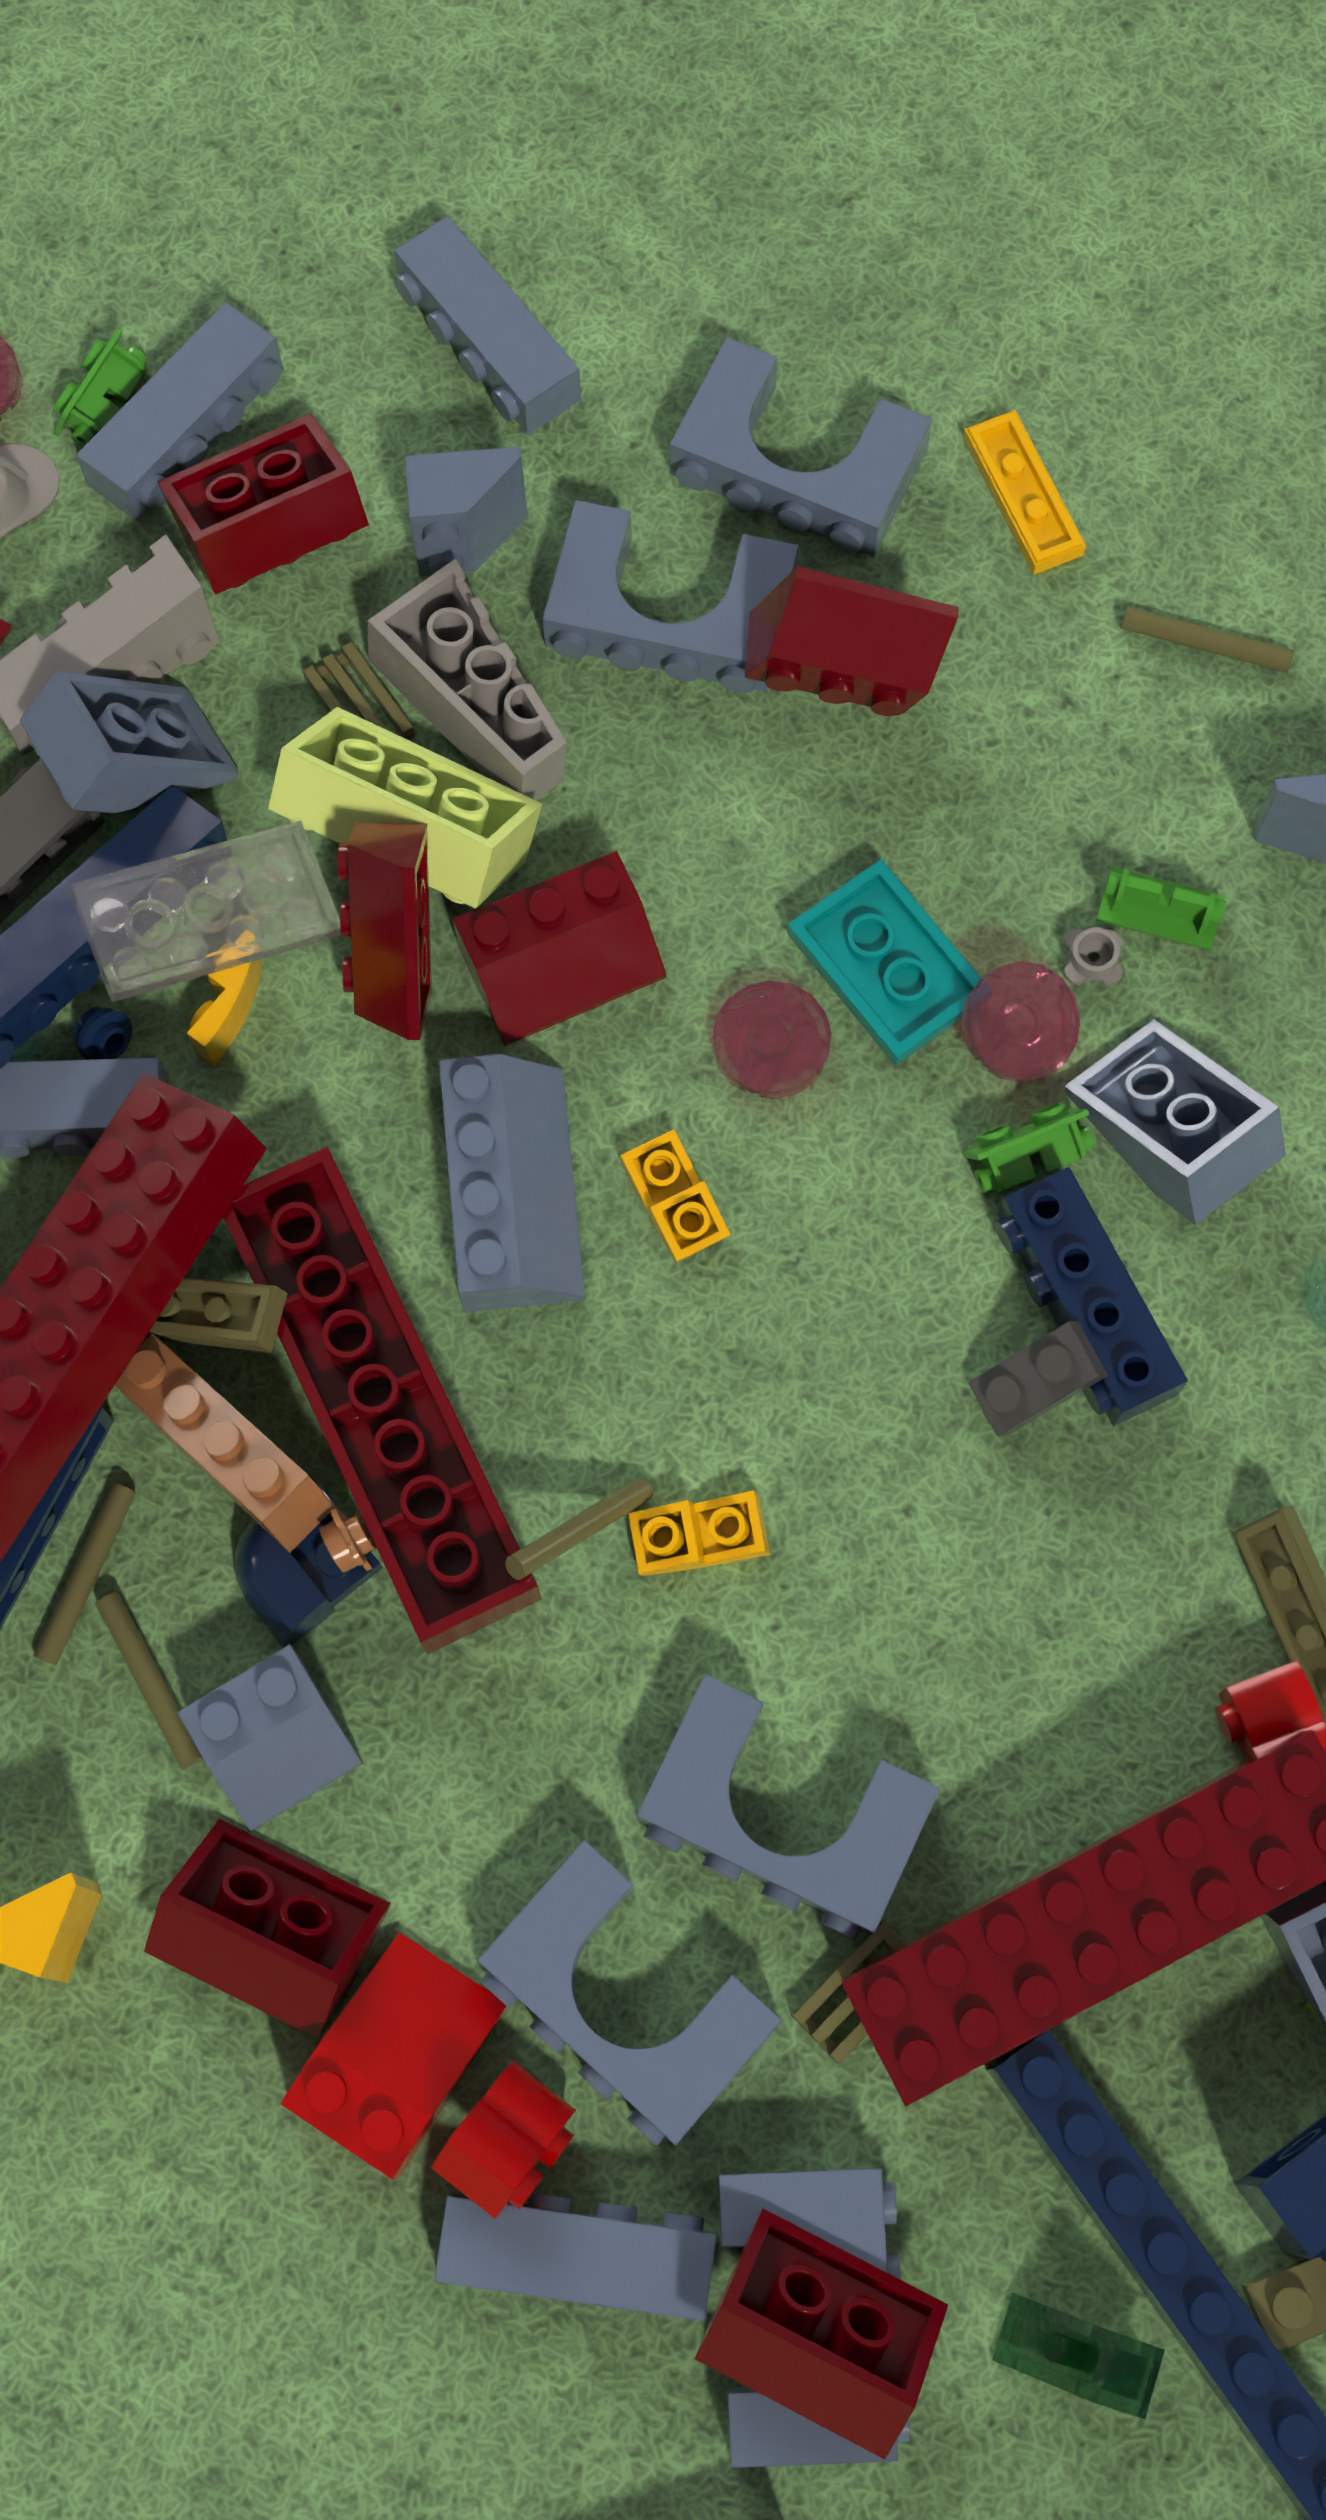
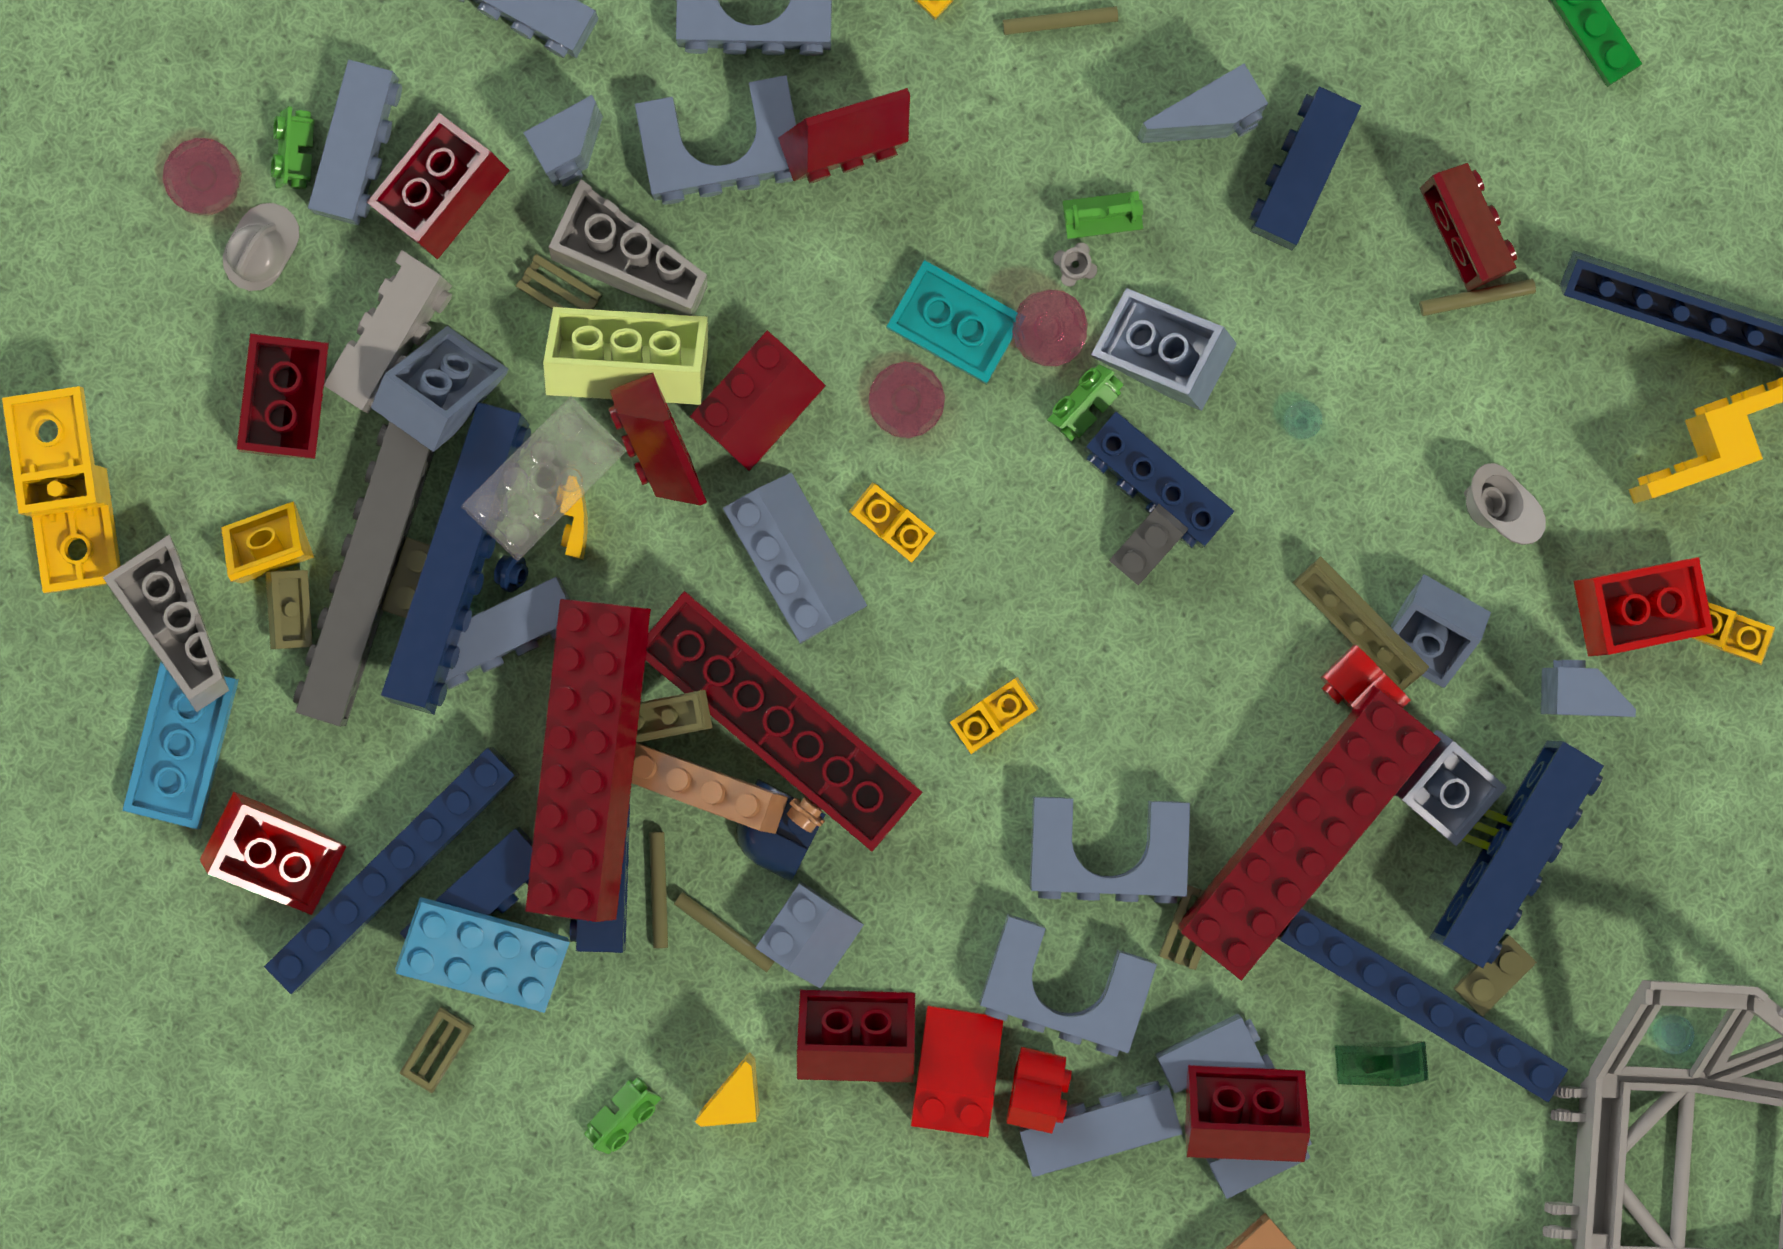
camera: 25 degrees left, 15 degrees up
(578, 1528) = (929, 746): olive bar -> none

